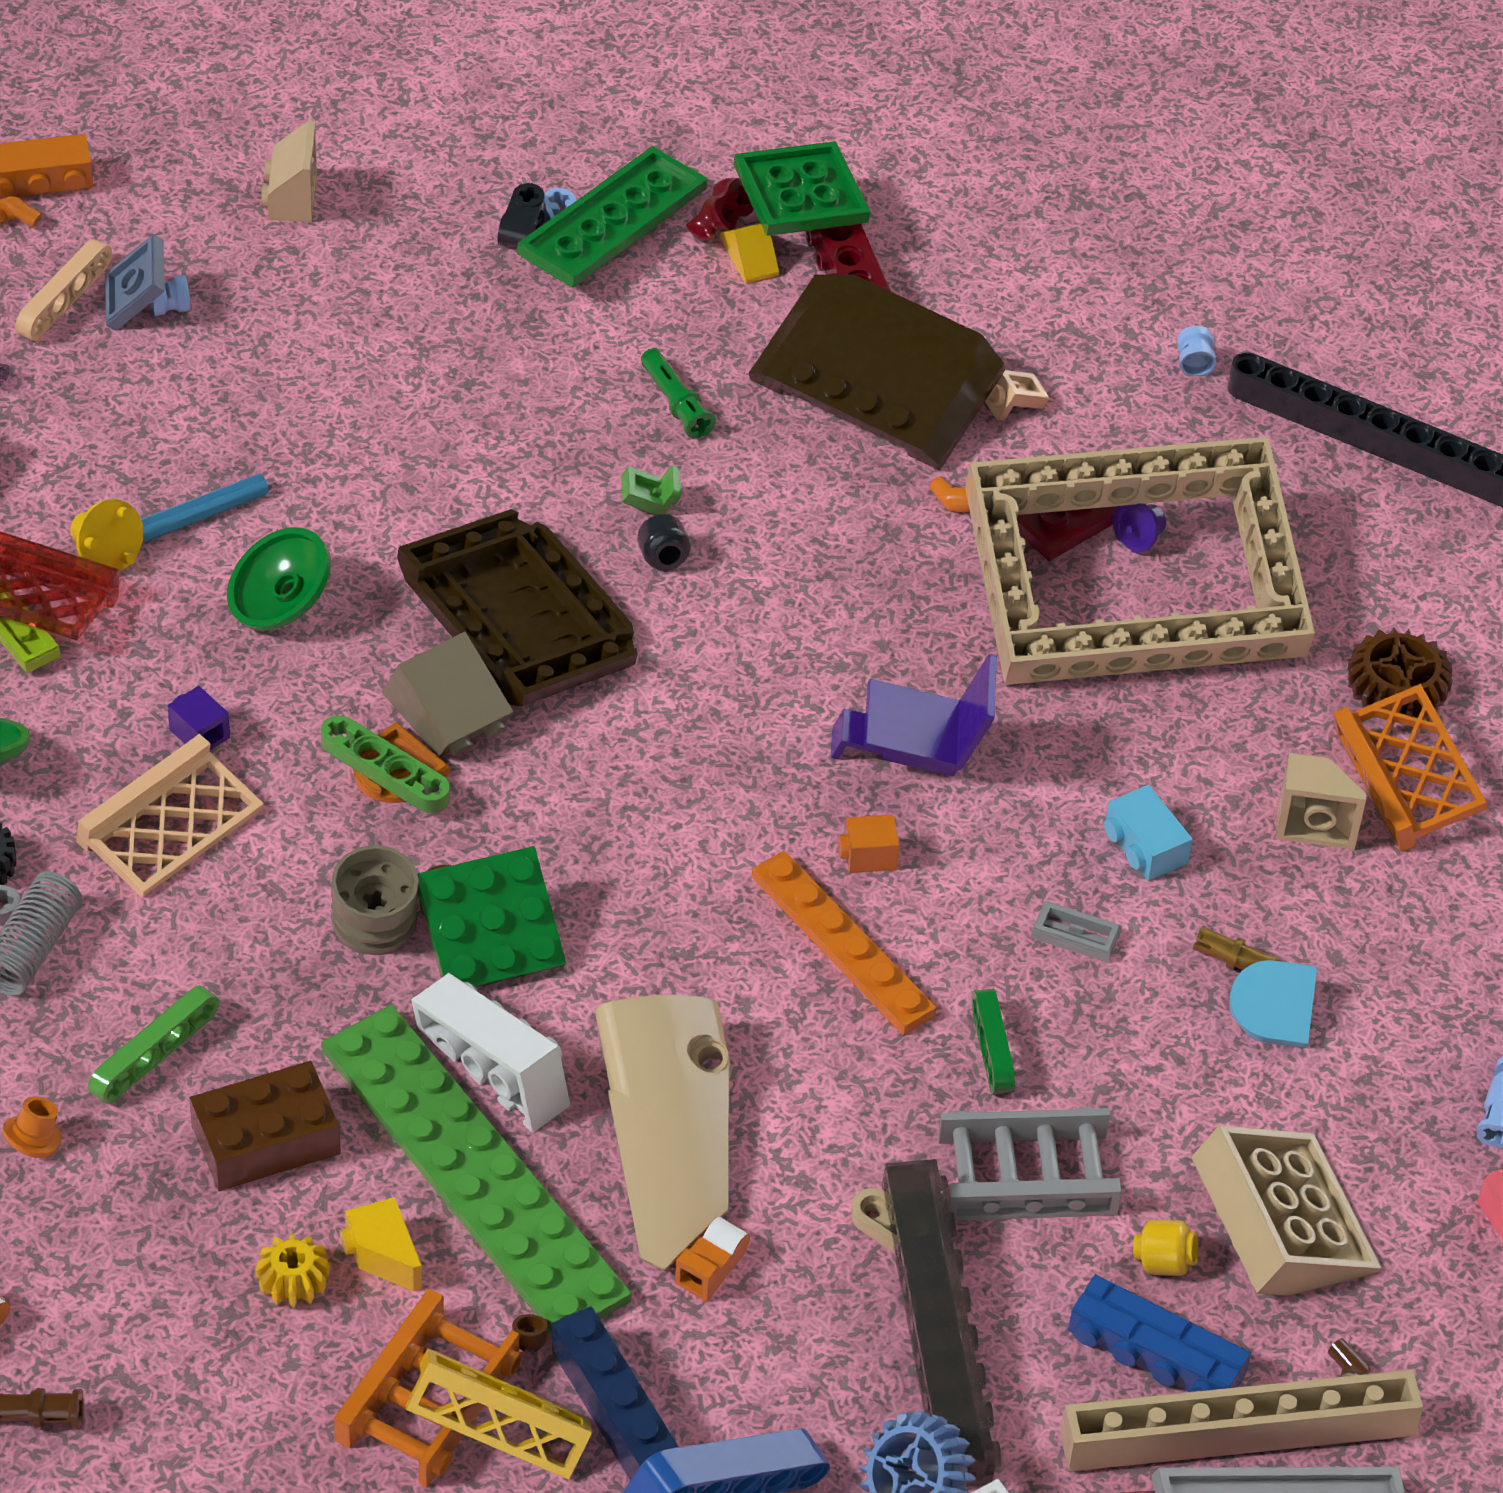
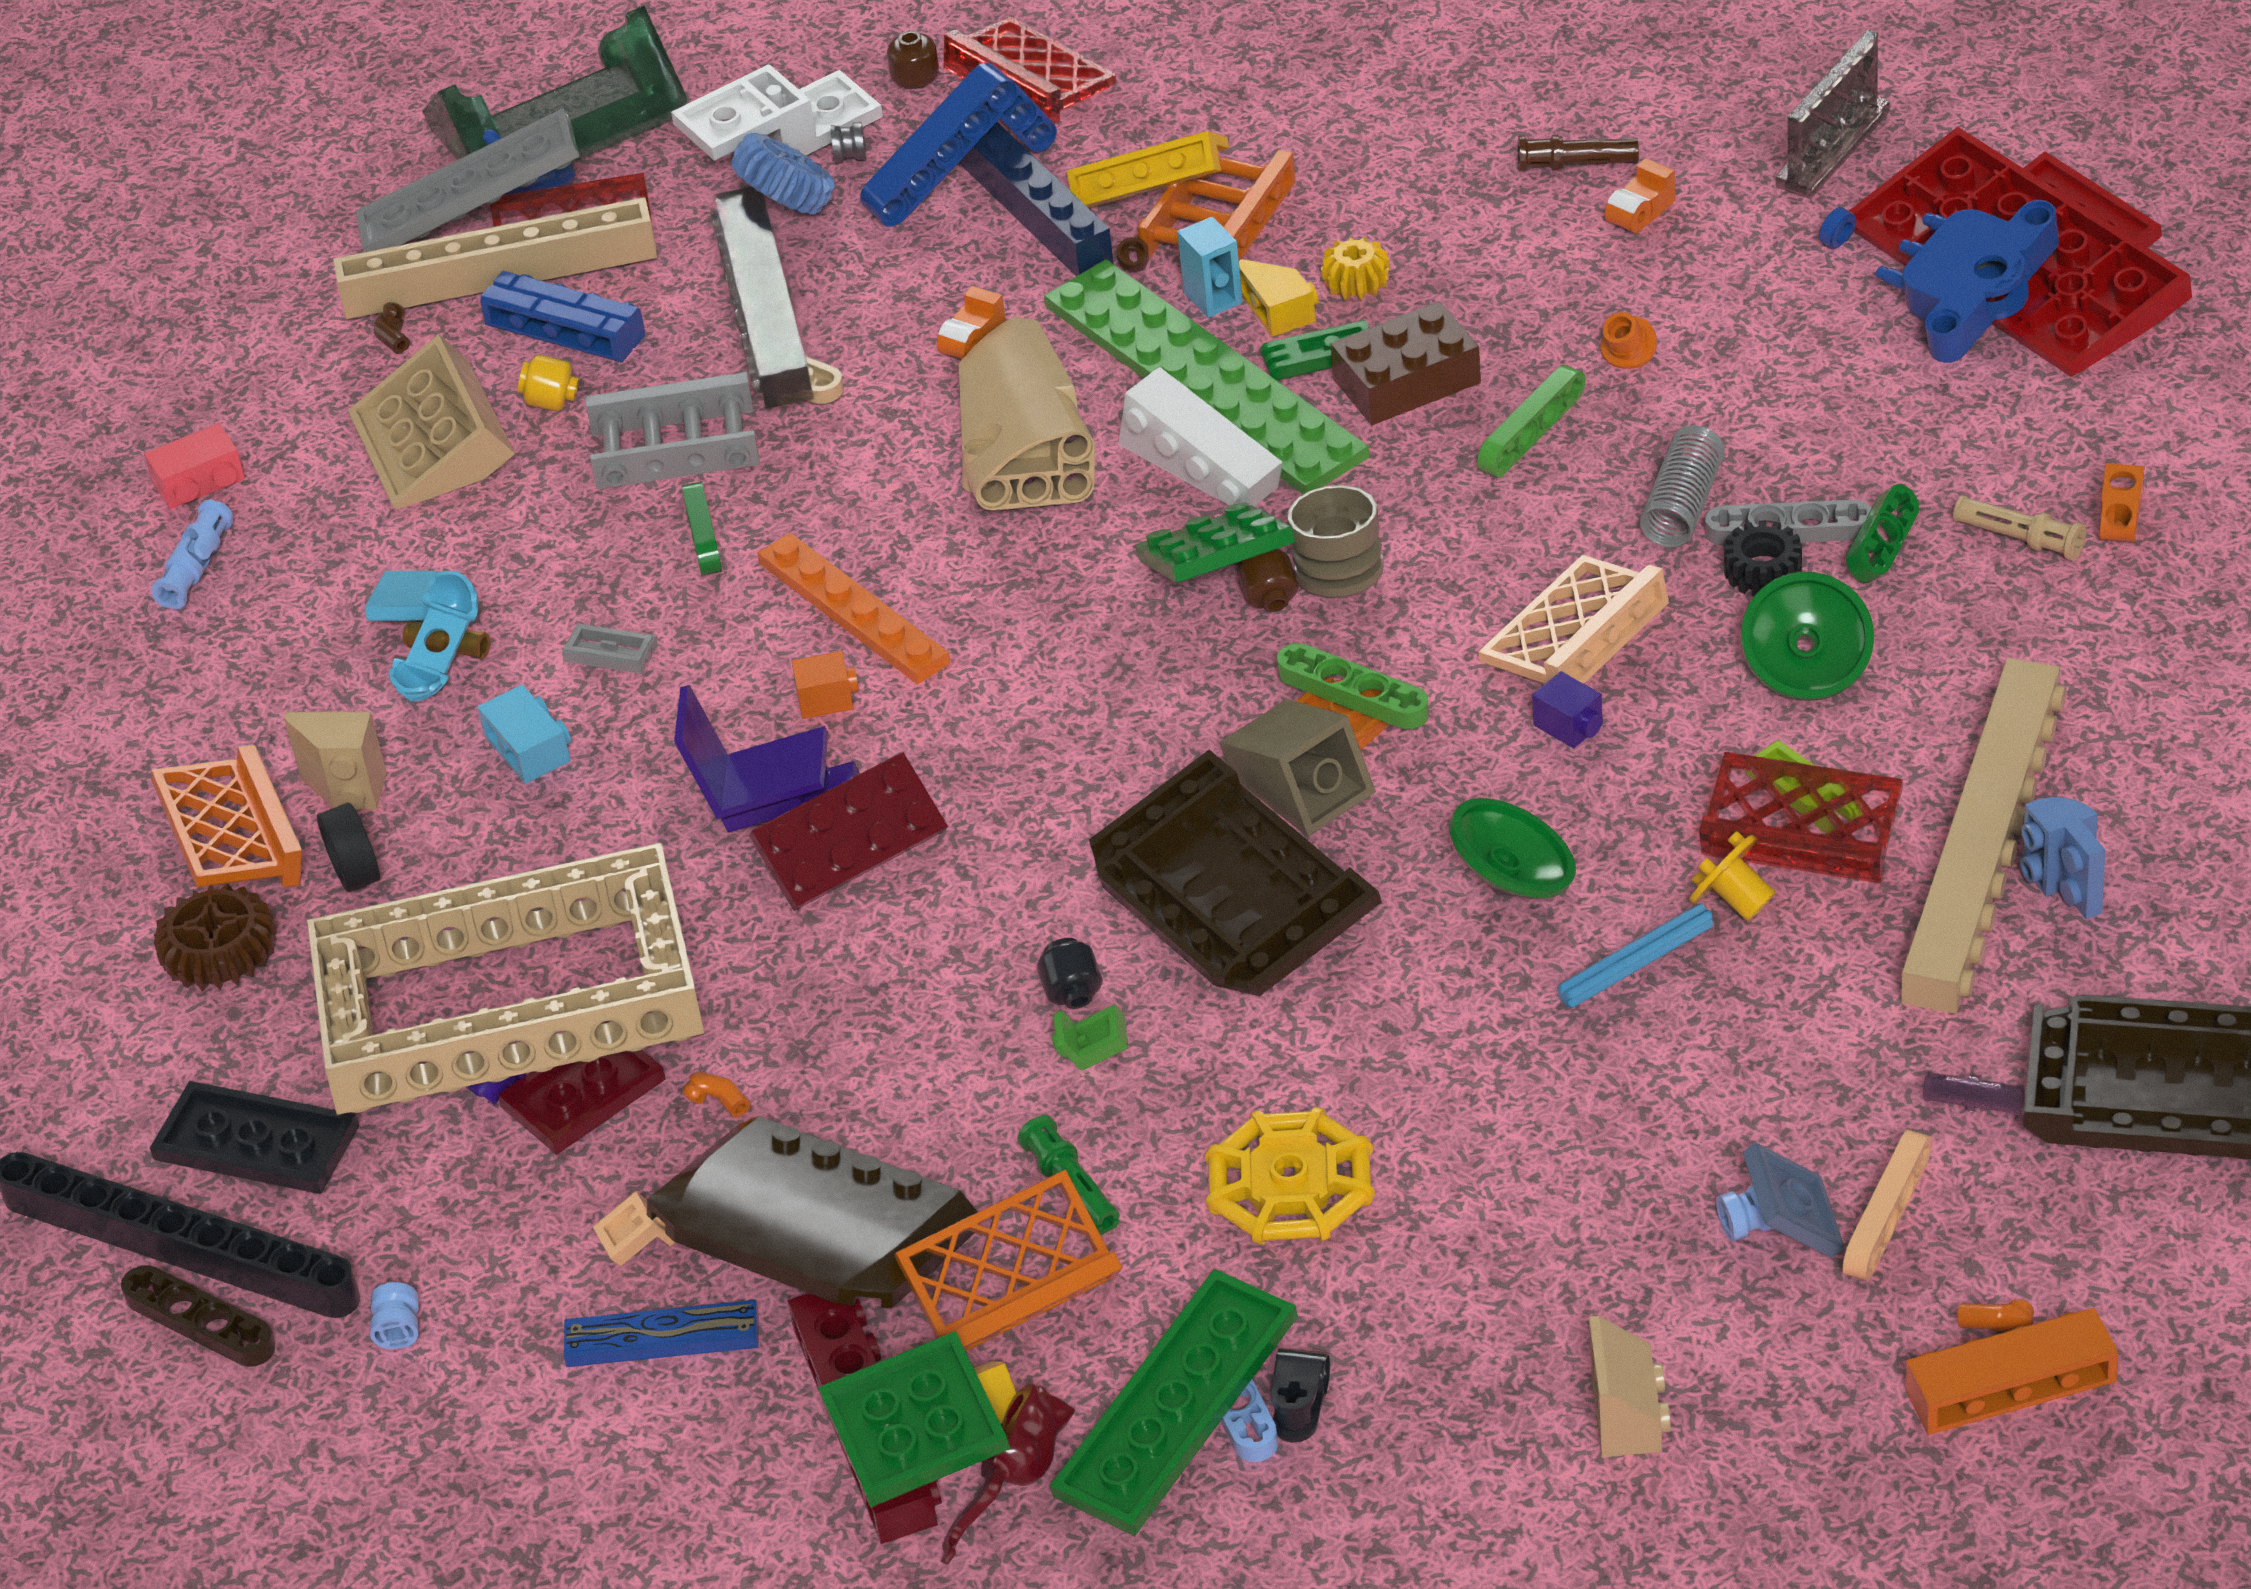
camera: 175 degrees left, 5 degrees down
(349, 1171) = (1306, 351): none -> green hinge
(450, 1259) = (1210, 267): none -> medium azure brick
(511, 351) = (1289, 1142): none -> yellow plate
(722, 298) = (1028, 1301): none -> orange fence
(845, 684) = (848, 831): none -> dark red plate
(1011, 326) = (661, 1333): none -> blue tile
(1254, 910) = (452, 607): none -> medium azure piece
(1292, 719) = (348, 847): none -> black tyre
(1308, 355) = (201, 1312): none -> dark brown beam
(1342, 505) = (254, 1137): none -> black plate

